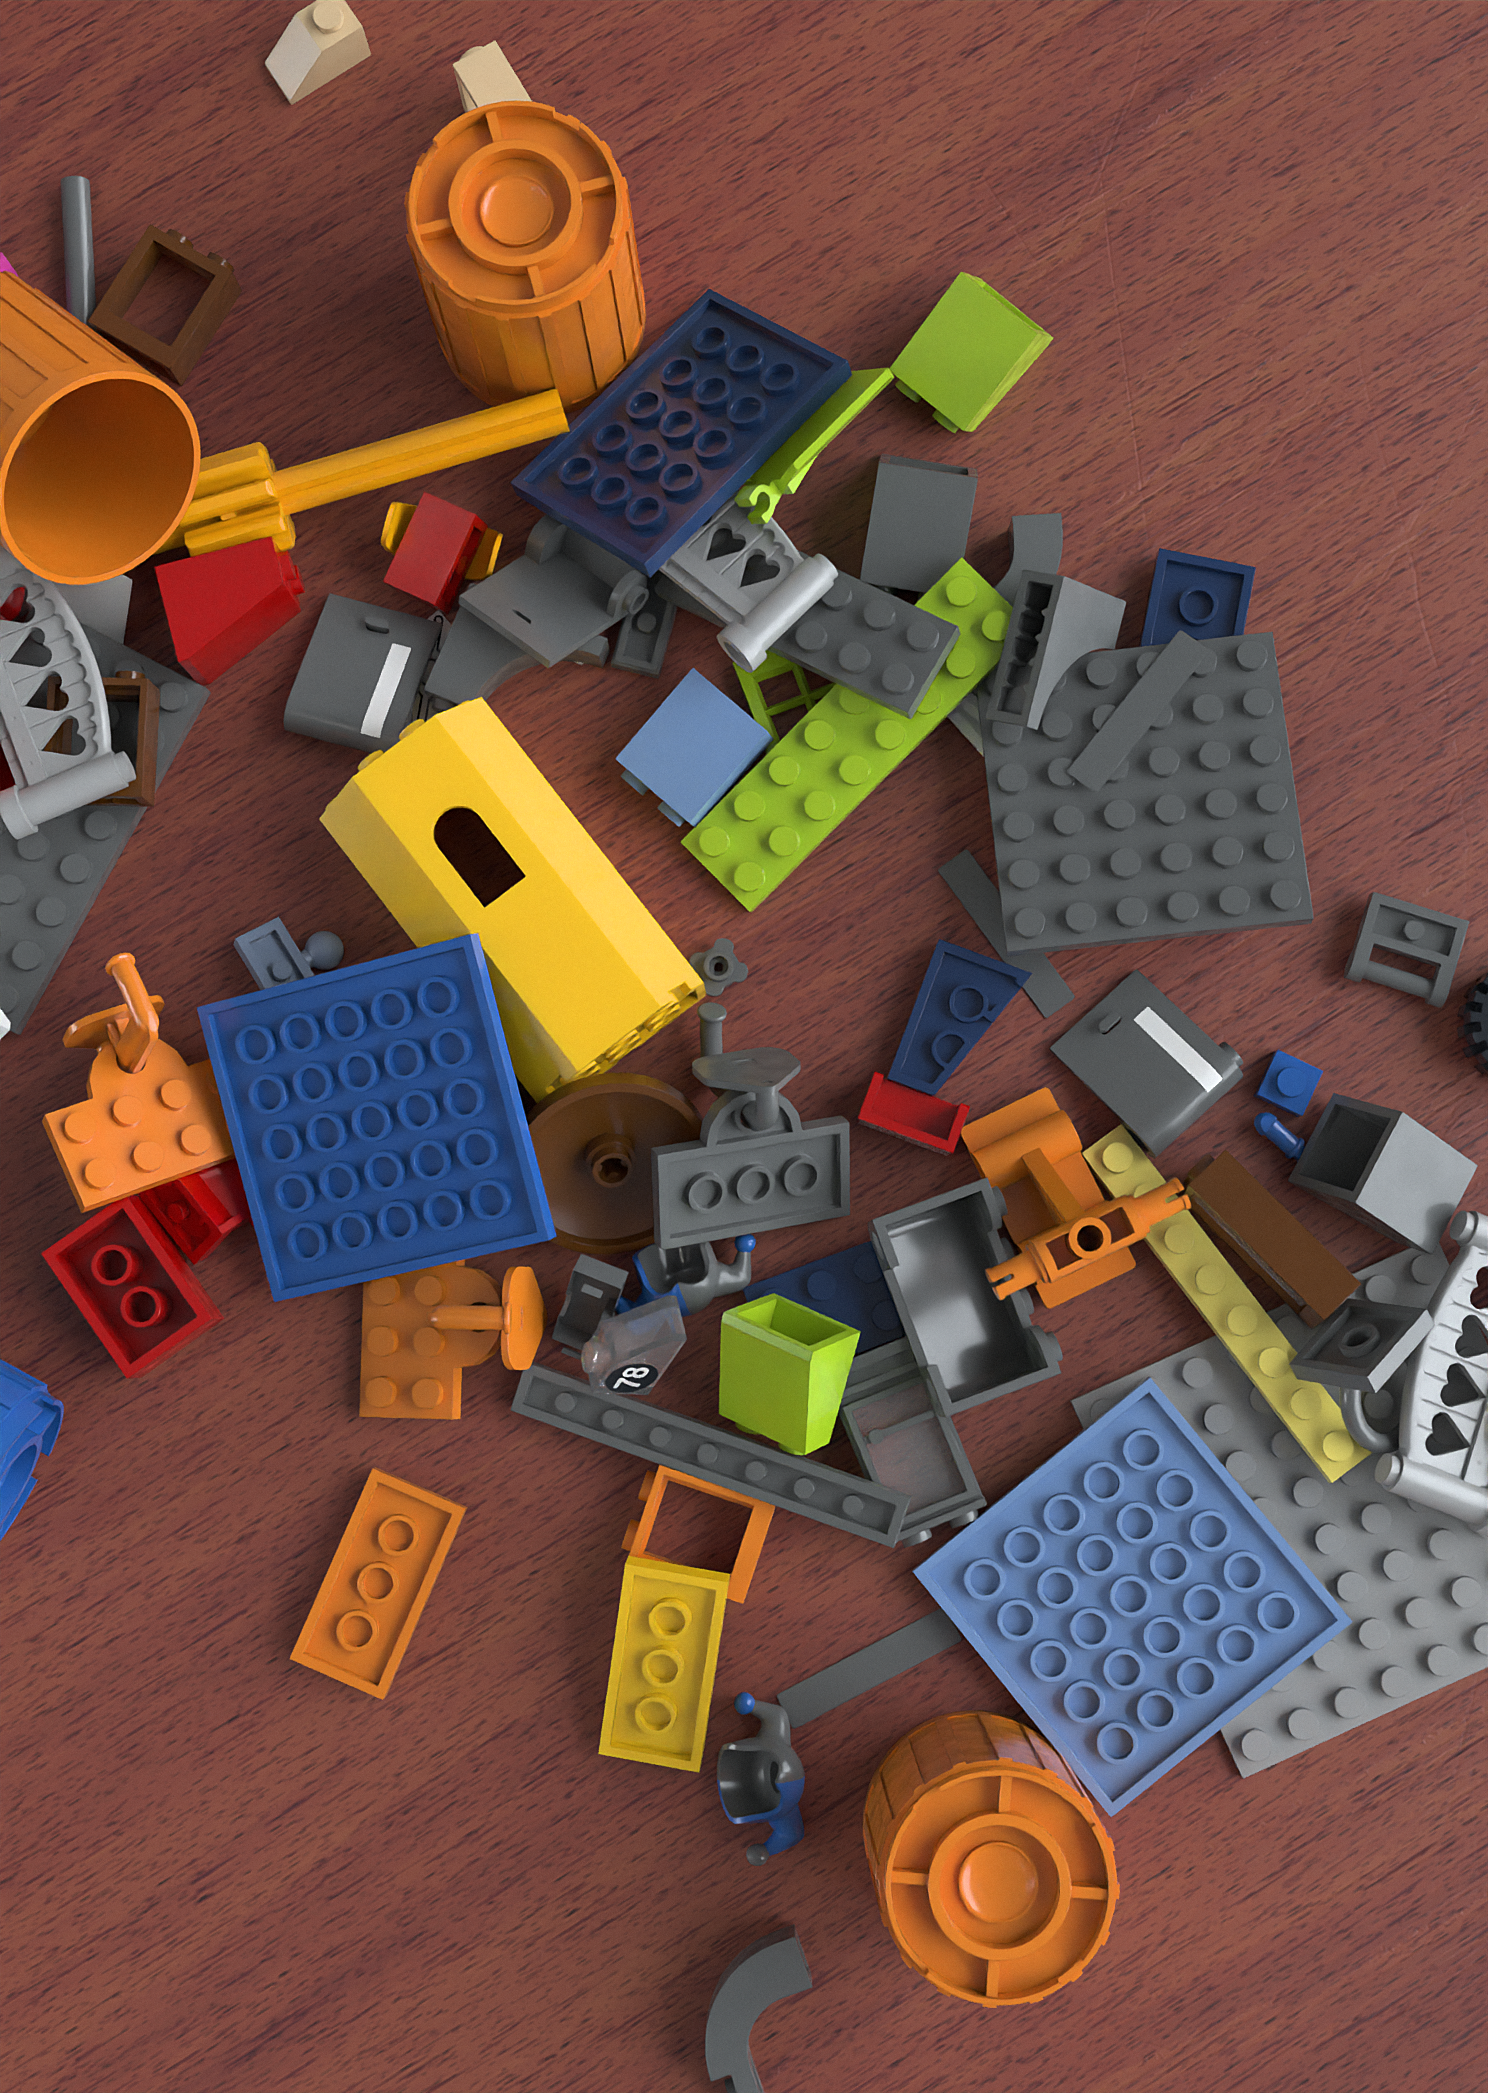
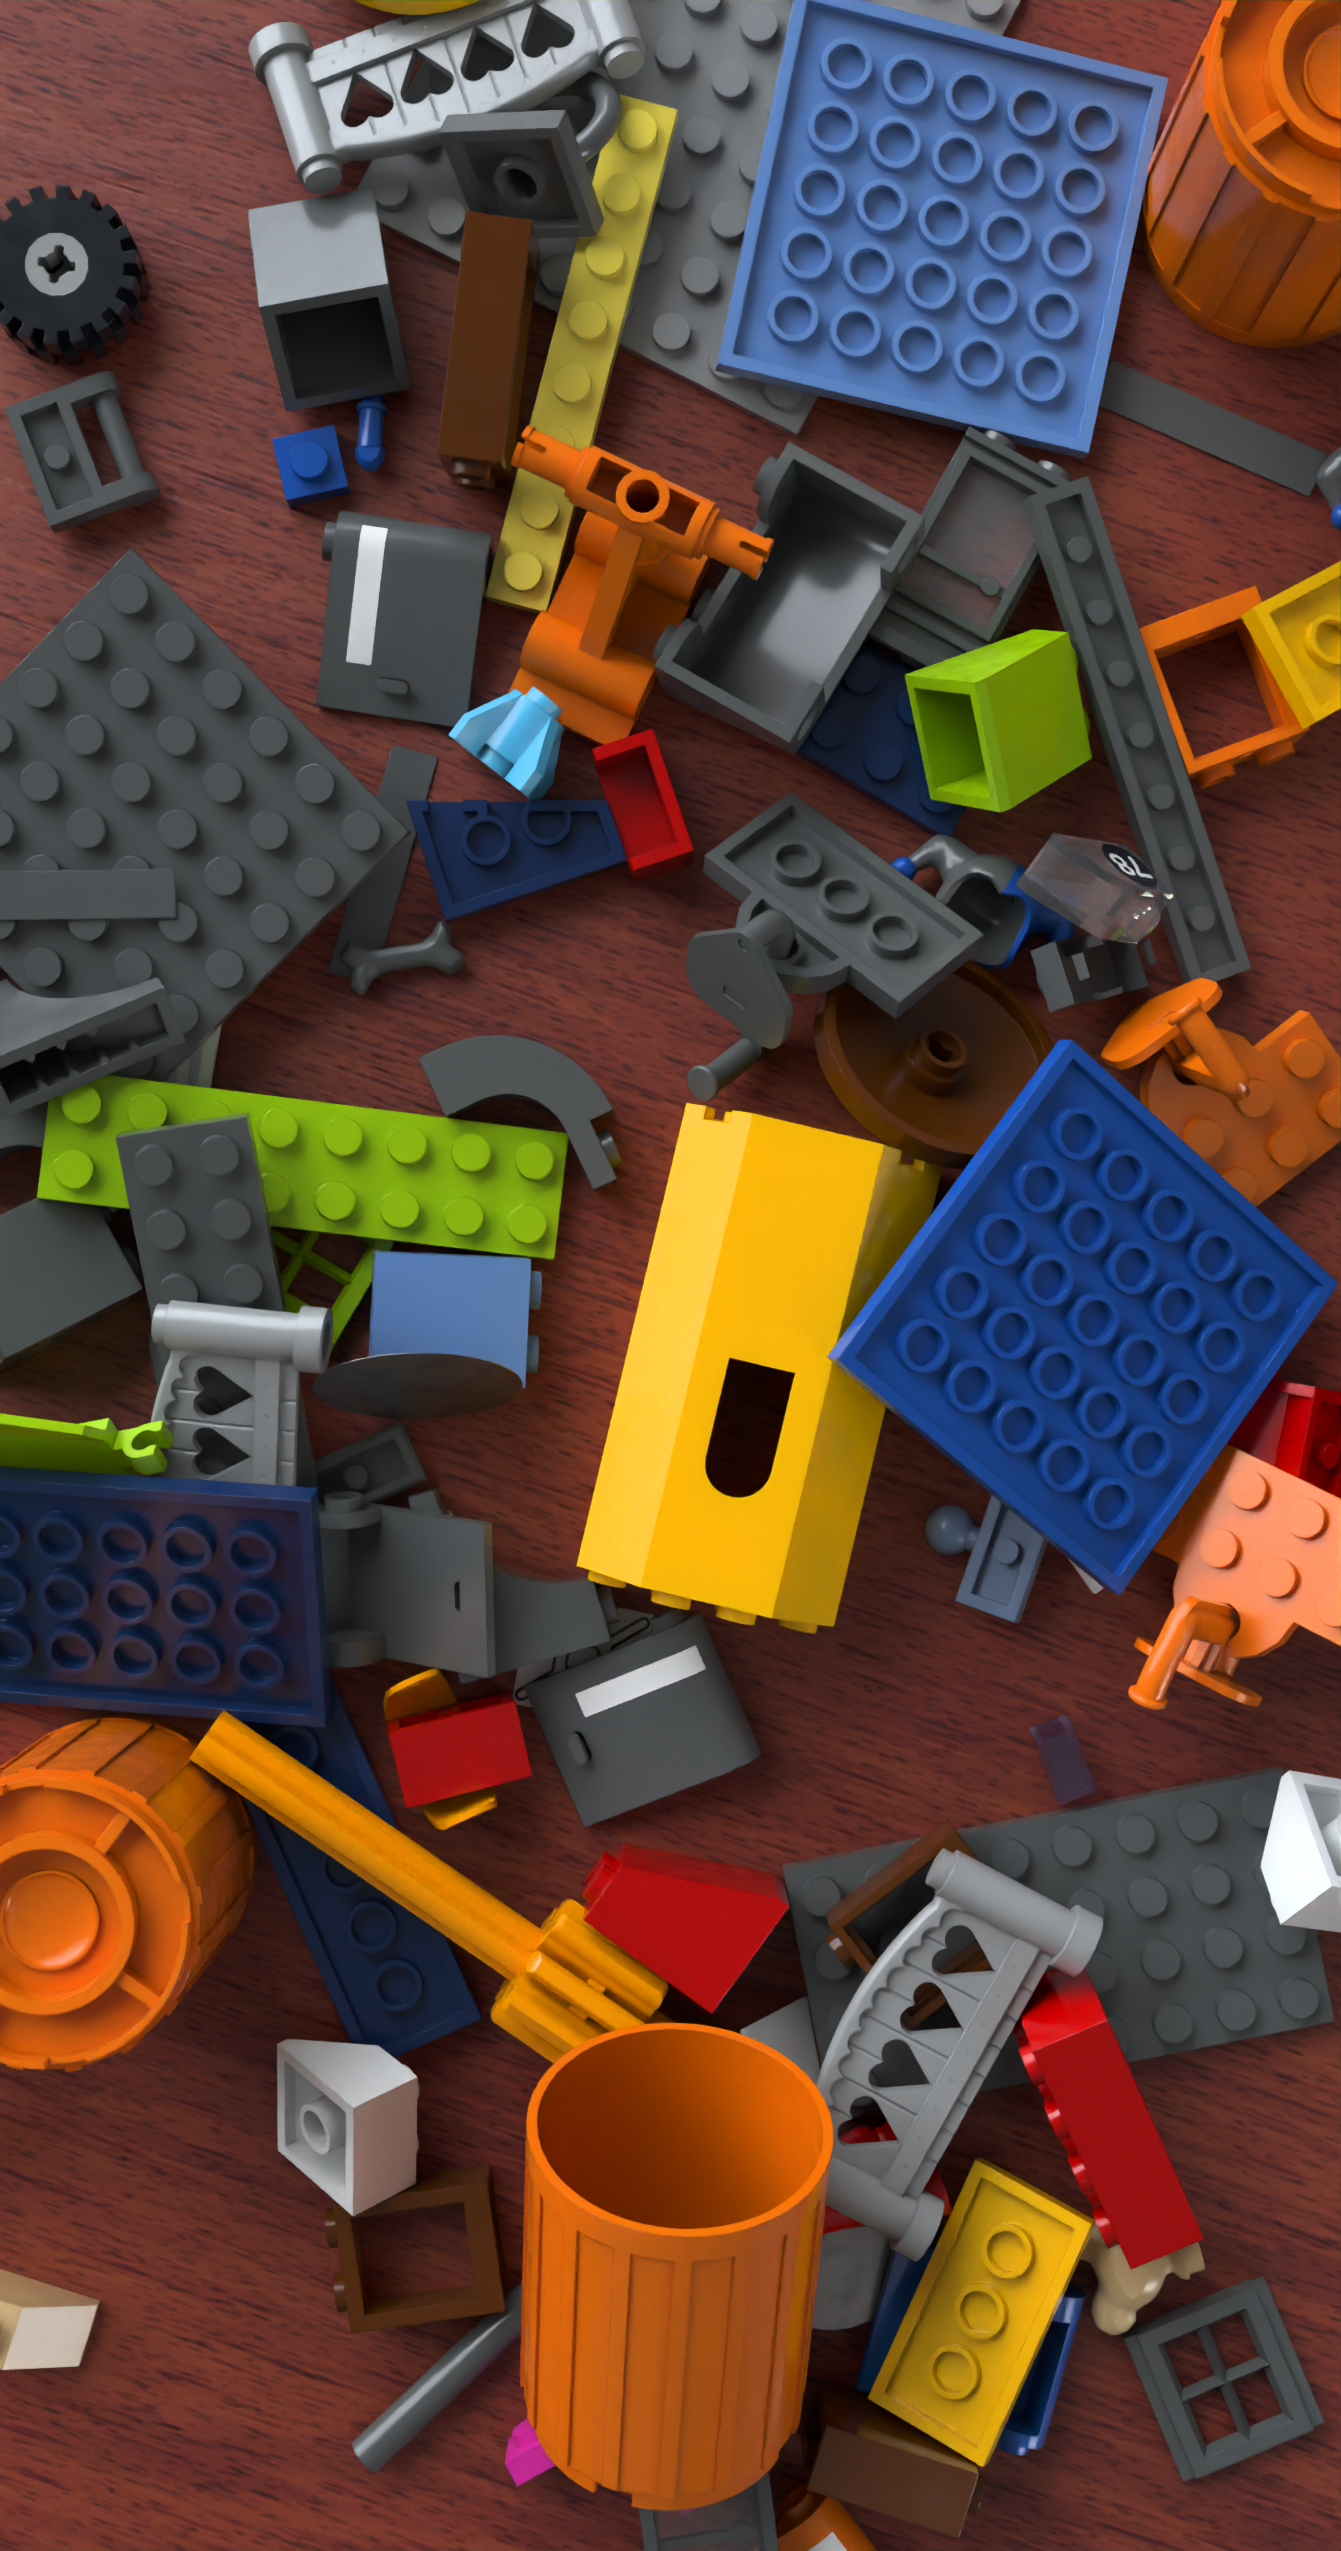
camera: 140 degrees left, 5 degrees up
(131, 905) = (1062, 1760): none -> clear purple piece
(272, 319) = (348, 2119): none -> white slope
(344, 407) = (383, 1965): none -> dark blue plate
(666, 692) = (417, 1385): none -> flat silver sticker
(717, 981) = (655, 1136): dark grey plate -> none
(800, 919) = (512, 1067): none -> dark grey arch
(949, 876) = (371, 963): none -> dark grey piece
(1013, 1066) = (515, 739): none -> medium azure brick

